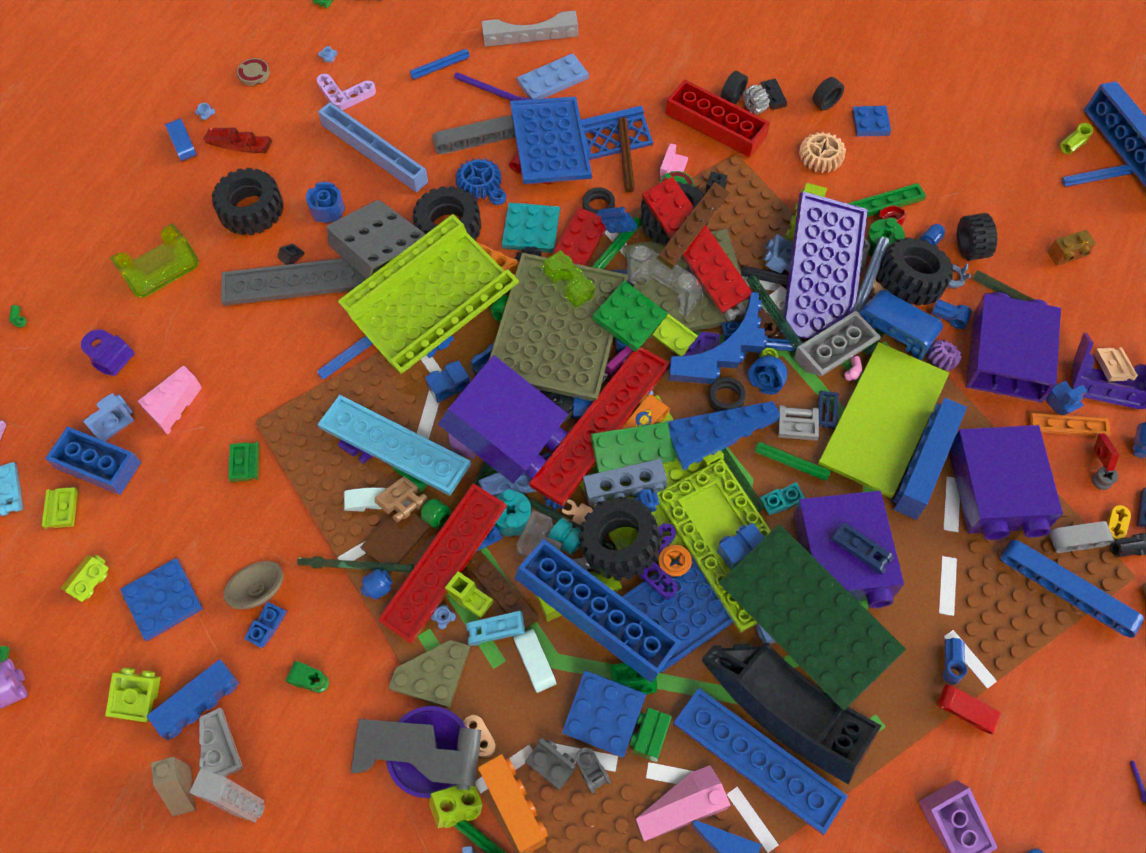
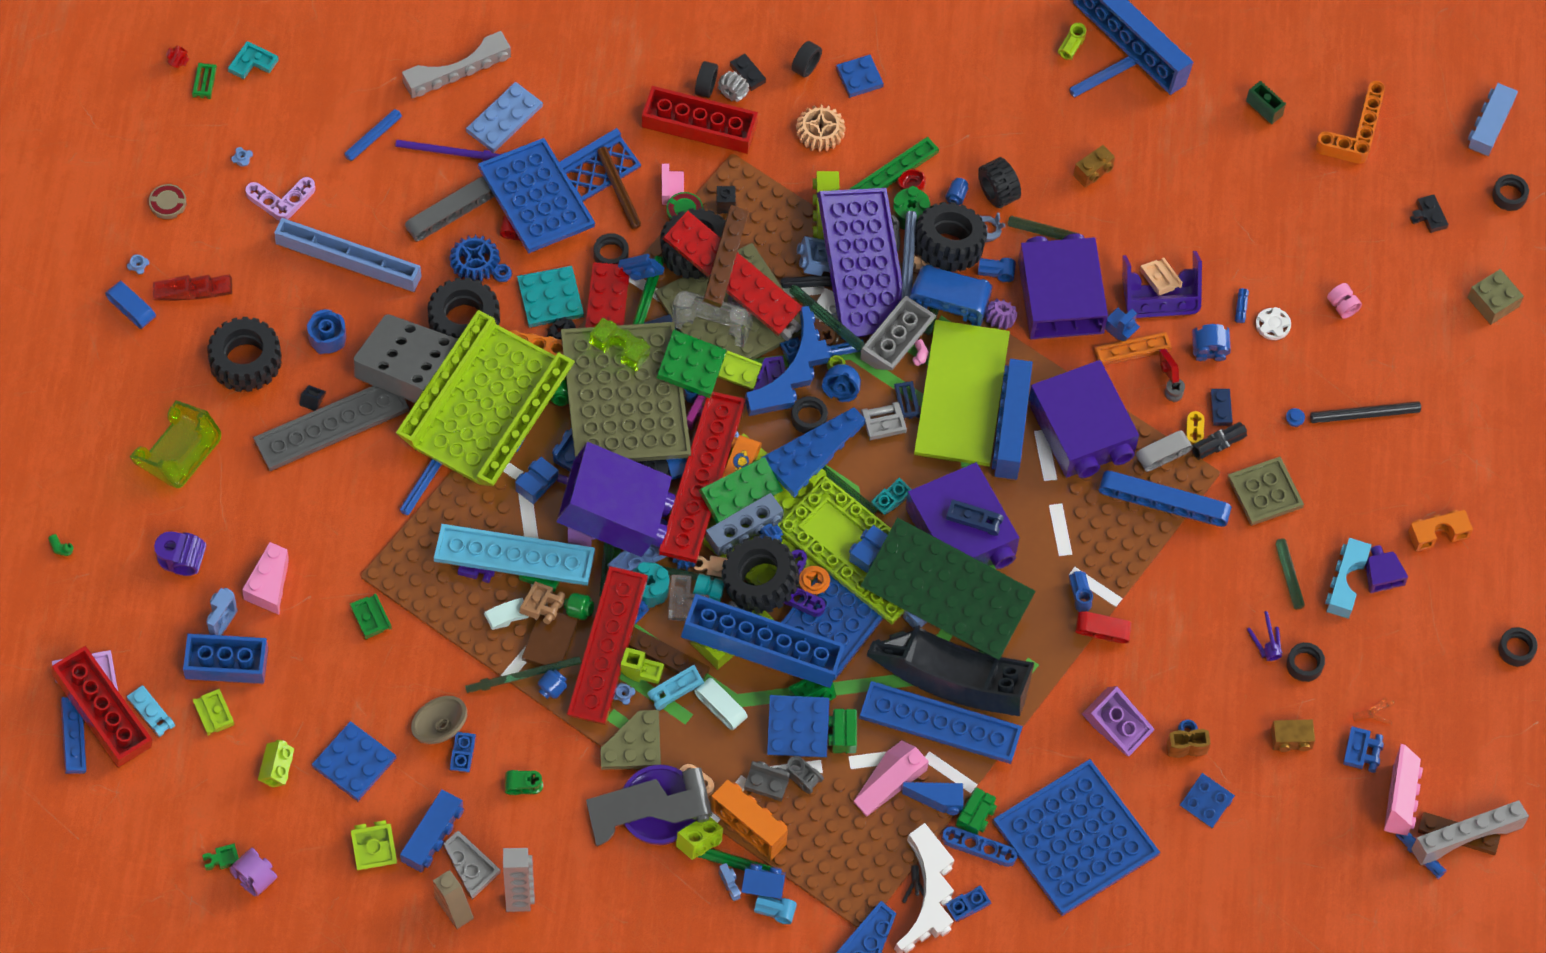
camera: 25 degrees left, 0 degrees up
(792, 461) = (889, 459): green axle -> none

